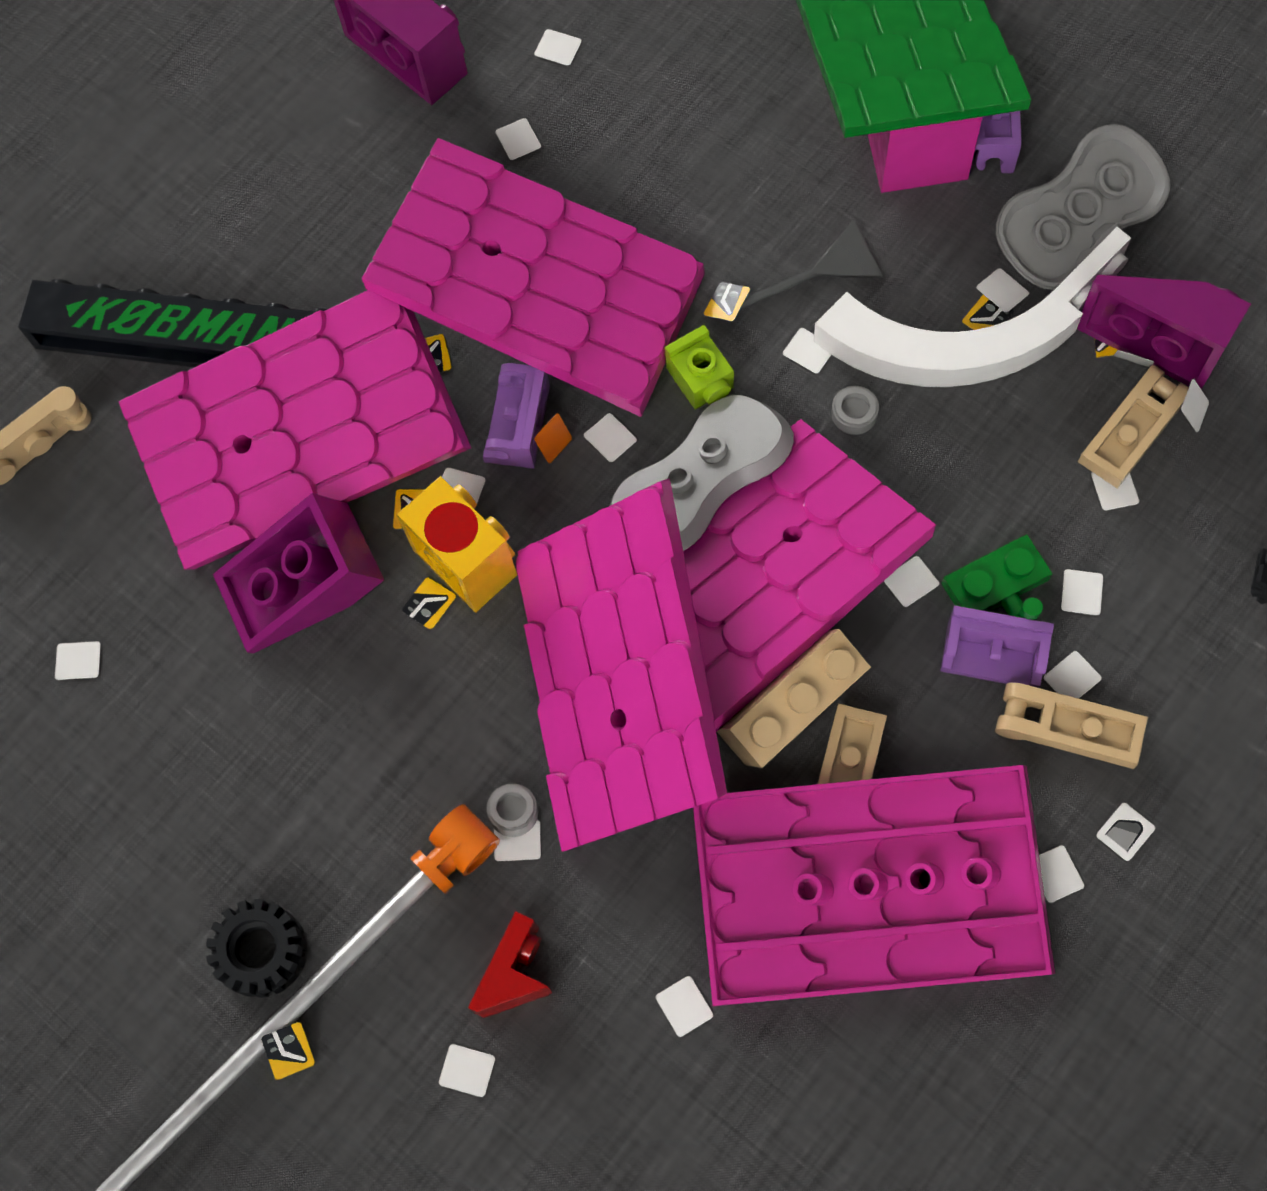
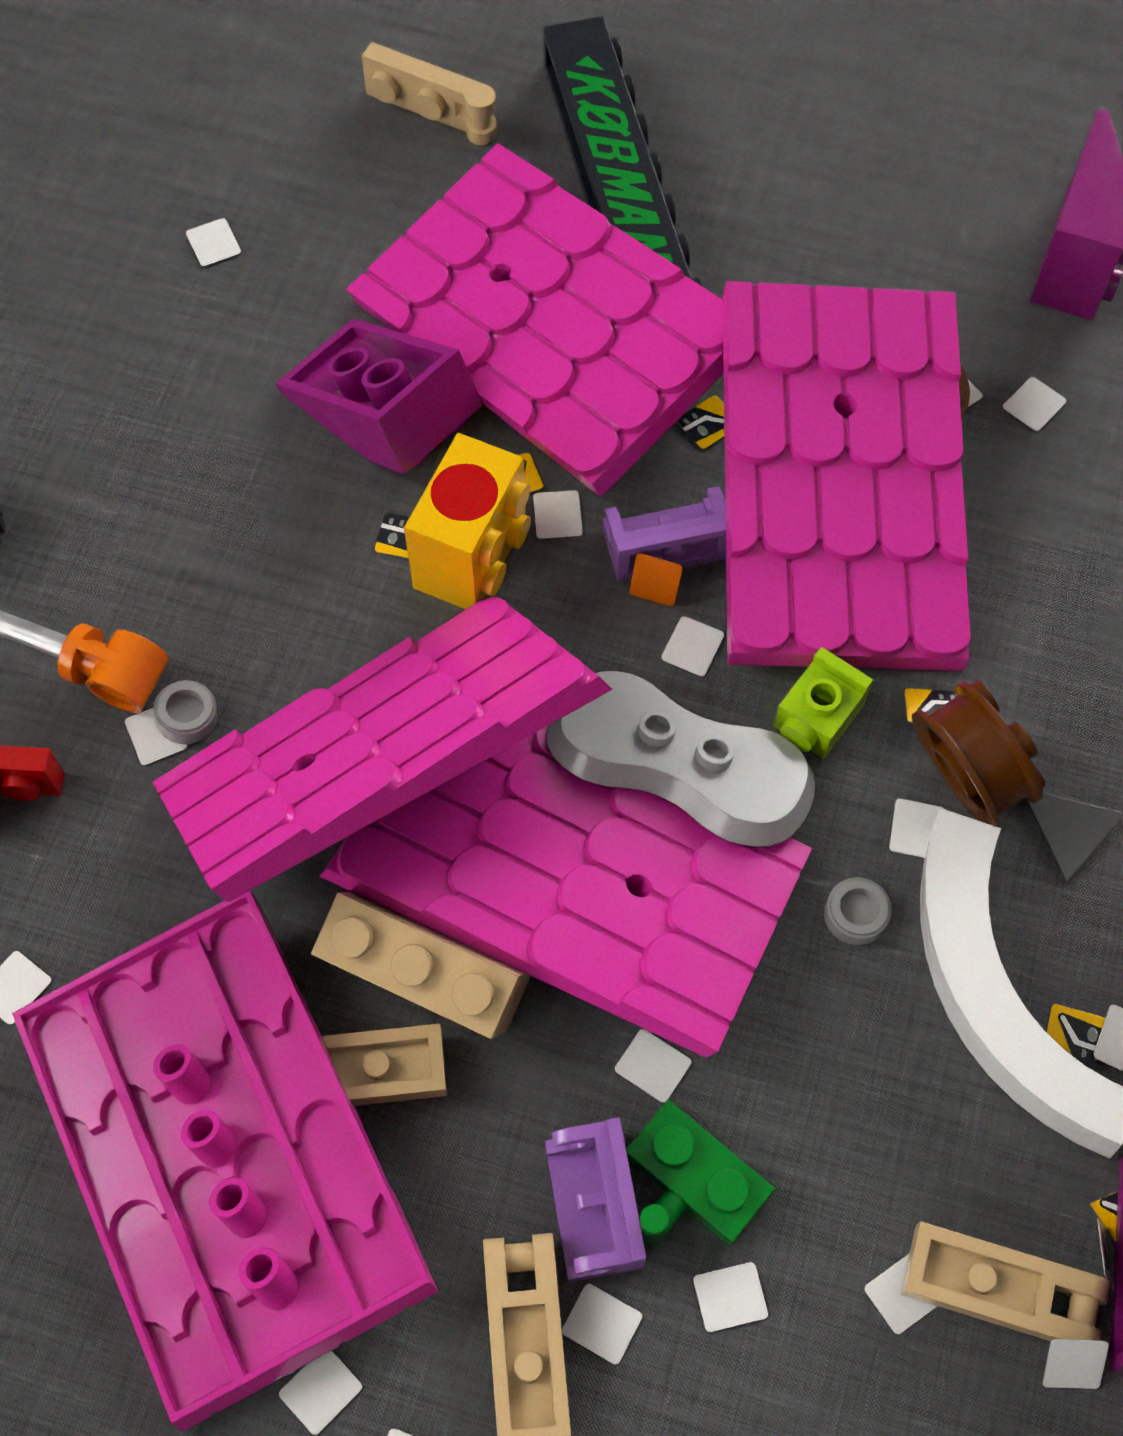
camera: 60 degrees right, 5 degrees down
(789, 281) = (979, 753): none -> reddish brown wheel

